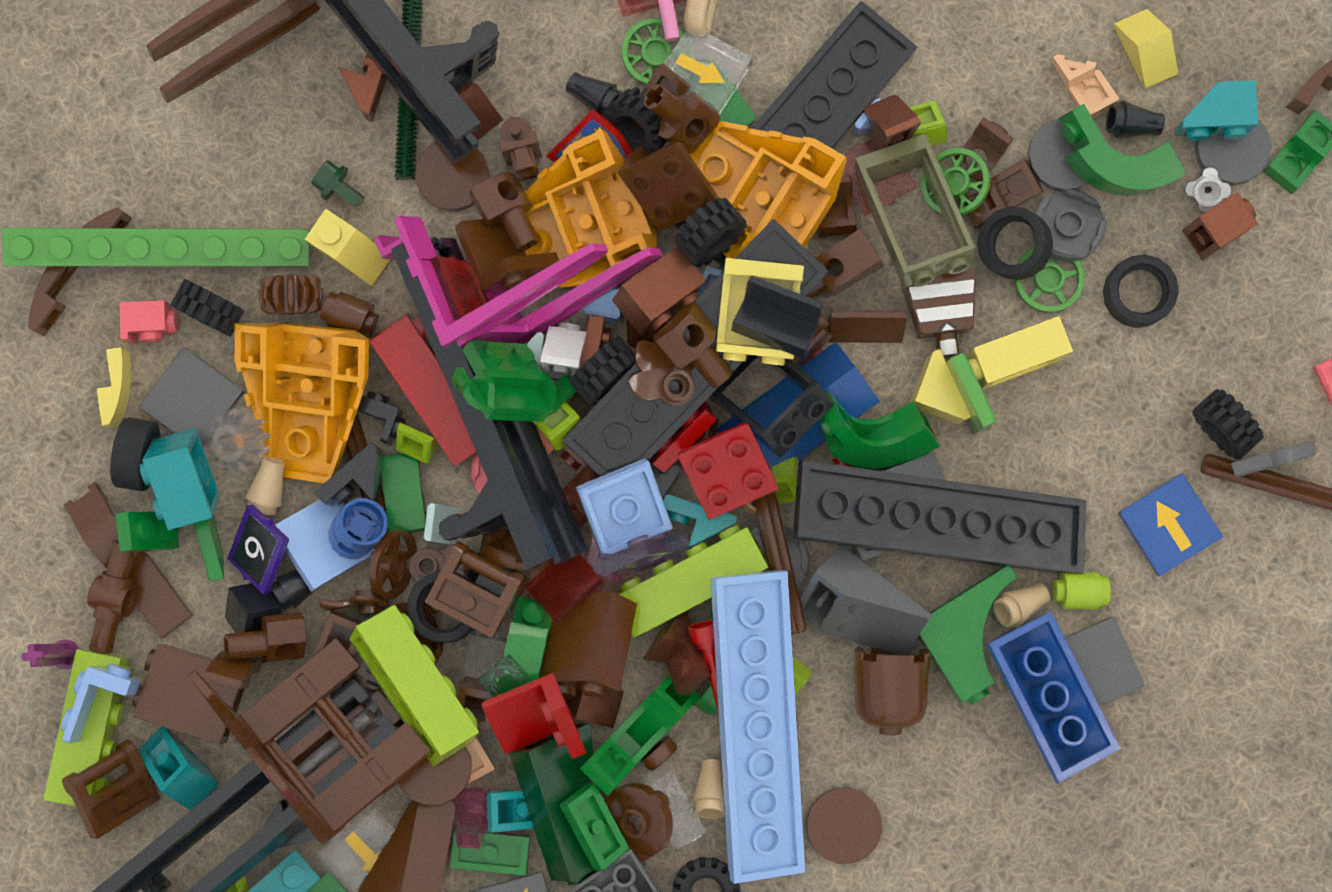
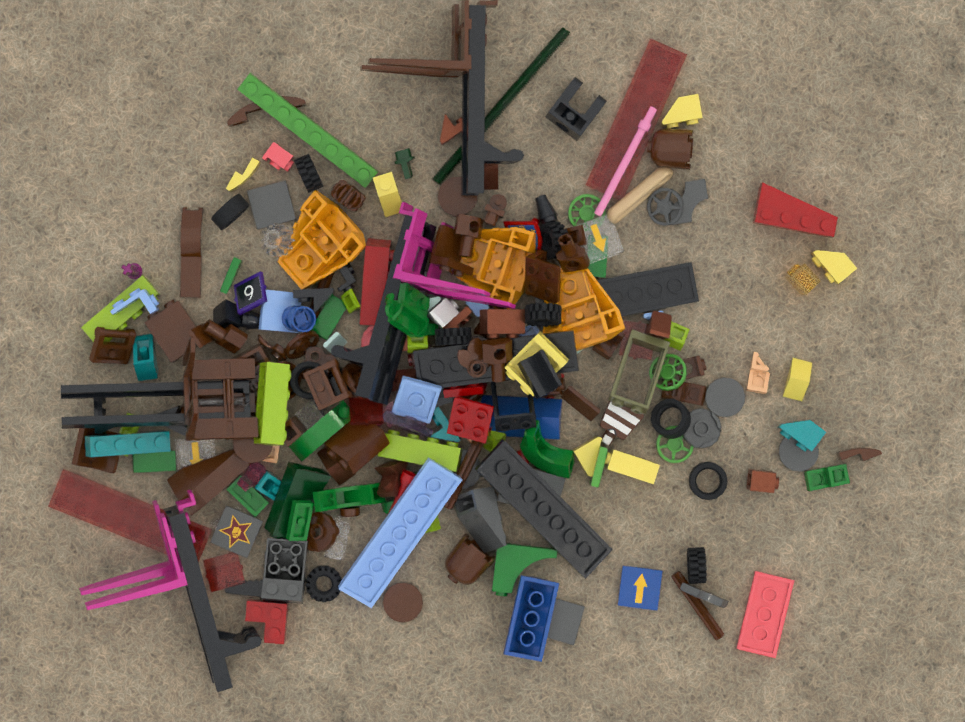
camera: 30 degrees right, 5 degrees up
(112, 599) = (174, 264): reddish brown pin -> none
(144, 533) = (210, 249): green plate -> none
(180, 479) = (241, 238): teal brick -> none
(267, 486) = (274, 269): tan cone -> none
(349, 313) = (366, 222): reddish brown brick -> none
(458, 285) = (420, 256): clear red piece -> none
(504, 677) = (310, 433): clear green tile -> none
(532, 715) = (311, 455): red bracket -> none
(709, 792) = (358, 543): tan cone -> none
(858, 262) = (598, 370): reddish brown torso -> none
(1019, 605) = (549, 570): tan cone -> none
(1081, 591) = (579, 585): lime brick -> none
(1110, 170) = (749, 432): green arch -> none
(1131, 120) = (765, 406): black cone -> none
(1197, 189) = (768, 465): white plate -> none

